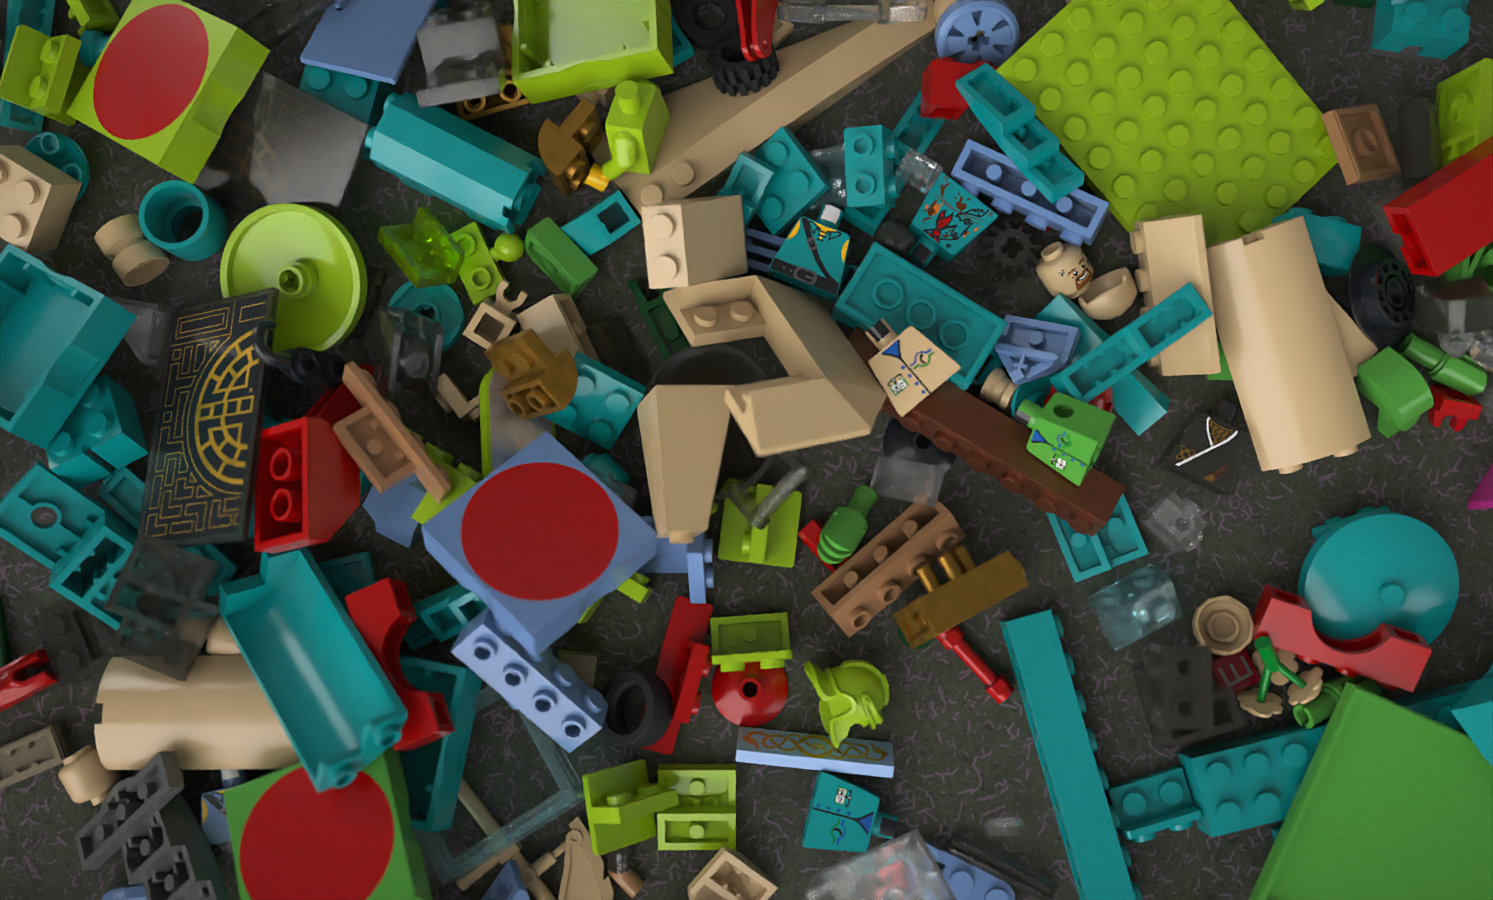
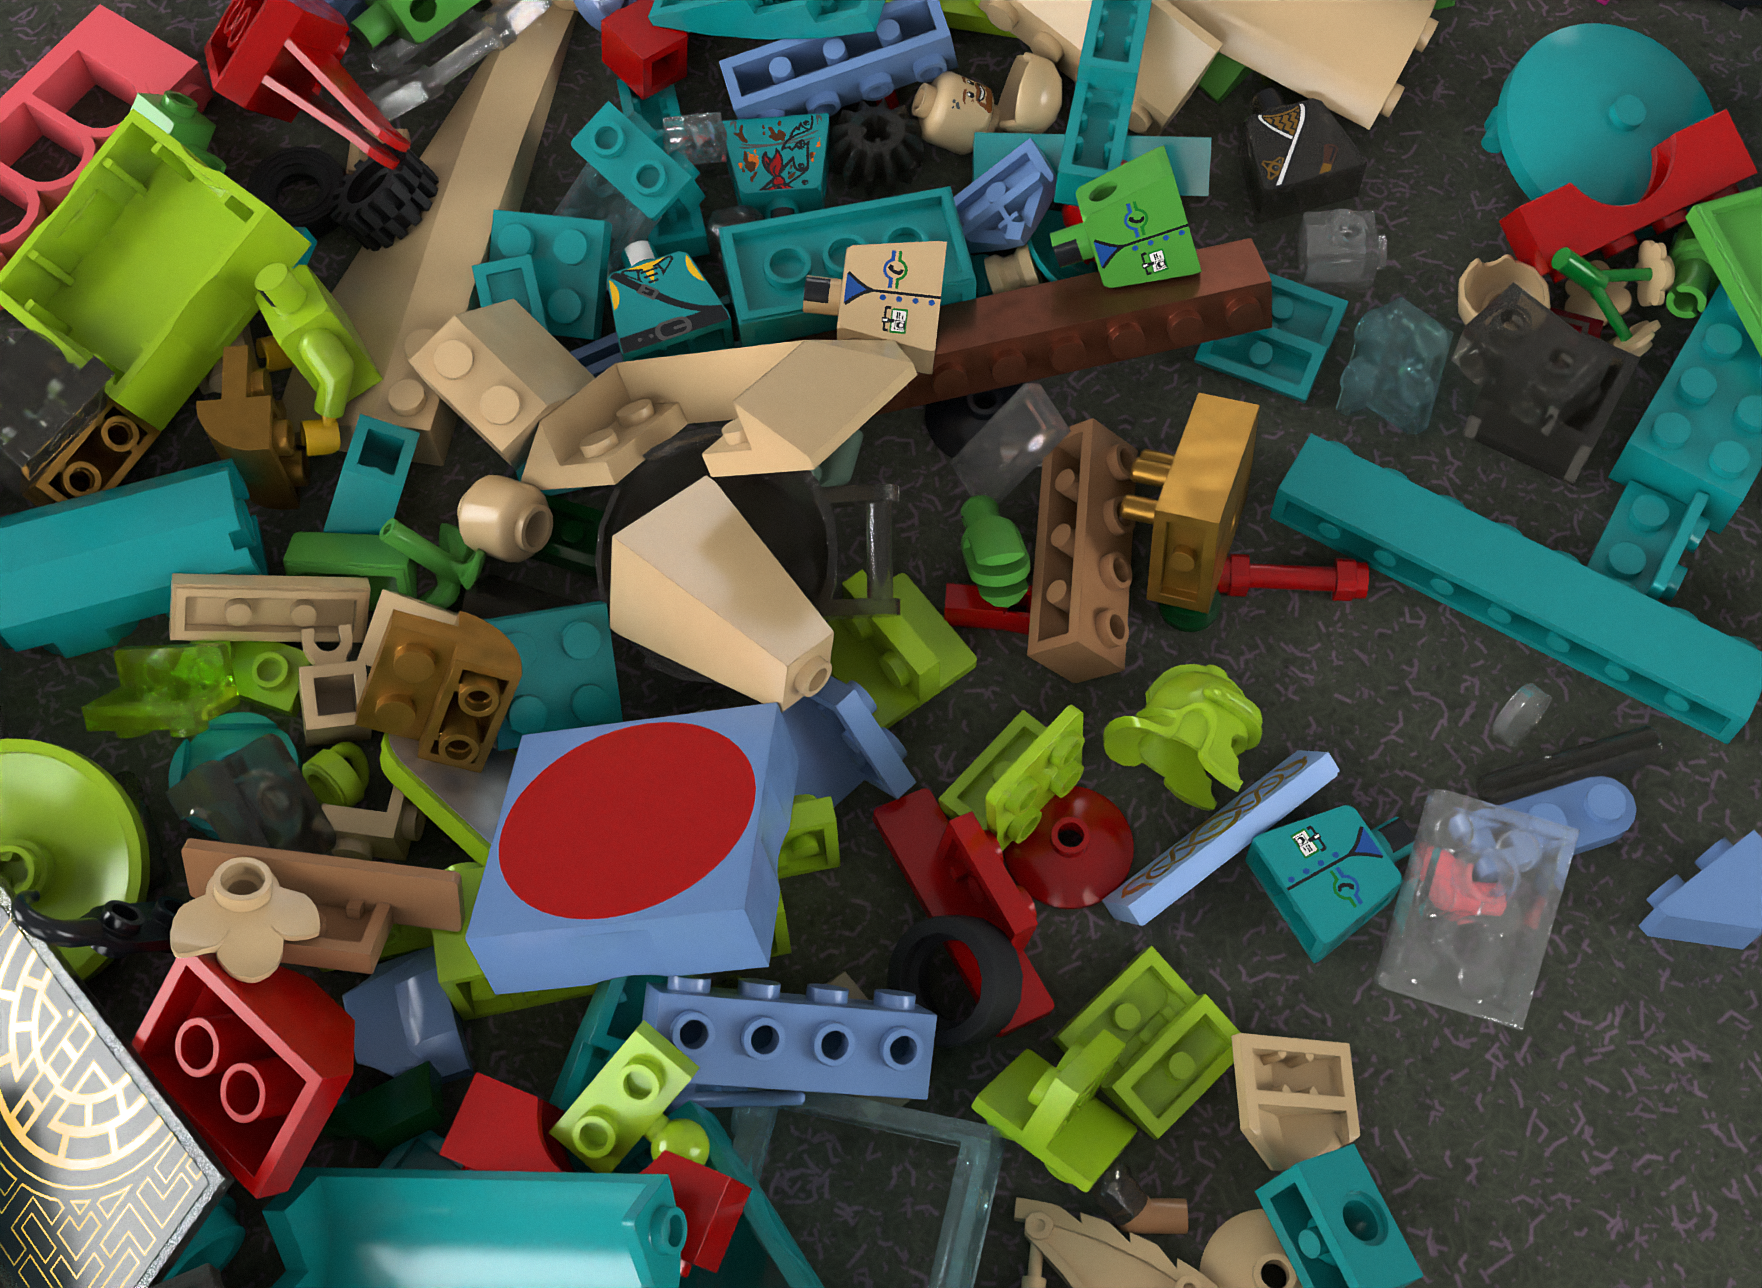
camera: 40 degrees left, 20 degrees down
(339, 432) = (244, 920): none -> tan plate
(363, 542) = (391, 1110): none -> dark green tile
(437, 652) = (630, 1102): none -> lime plate
(462, 359) = (334, 779): none -> lime tile
(501, 250) = (266, 607): none -> tan tile
(601, 299) = (450, 562): none -> bright green plant
(639, 306) = (505, 518): none -> tan head

